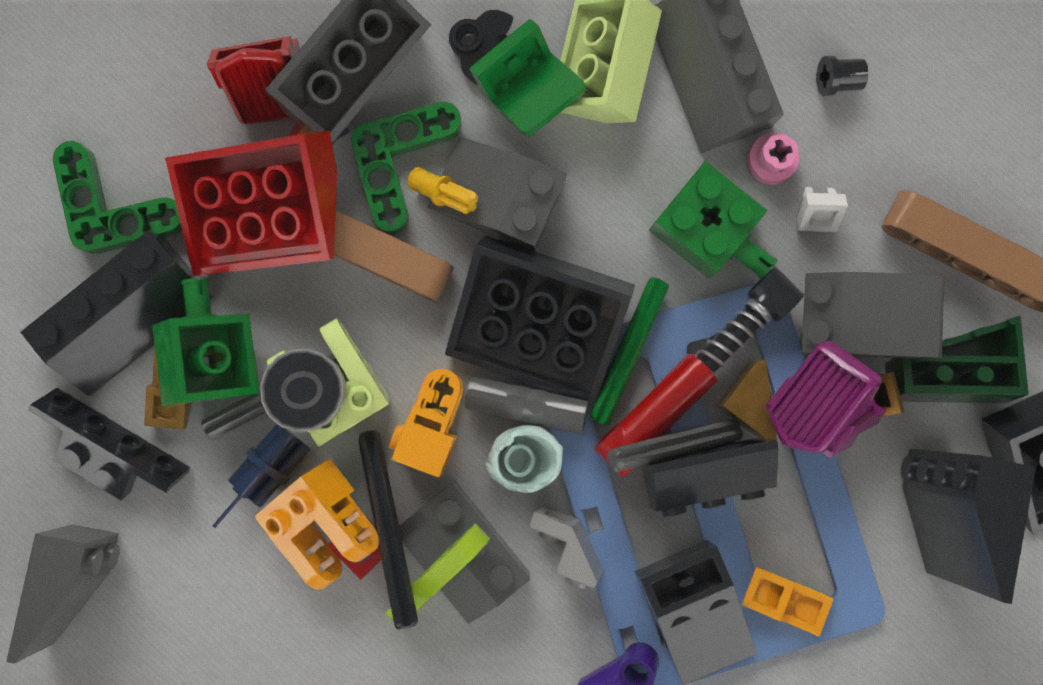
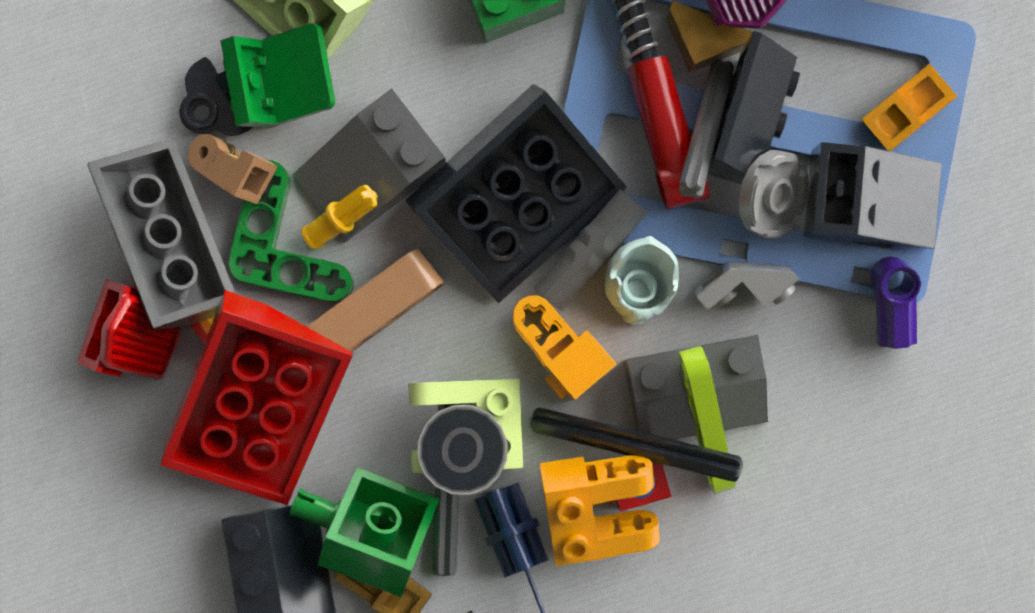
camera: 55 degrees left, 0 degrees up
(95, 213) = (169, 570): green beam -> none
(432, 84) = (239, 174): none -> medium nougat leg
(629, 351) = (592, 124): green axle -> none
(653, 528) = (773, 194): none -> light grey tile

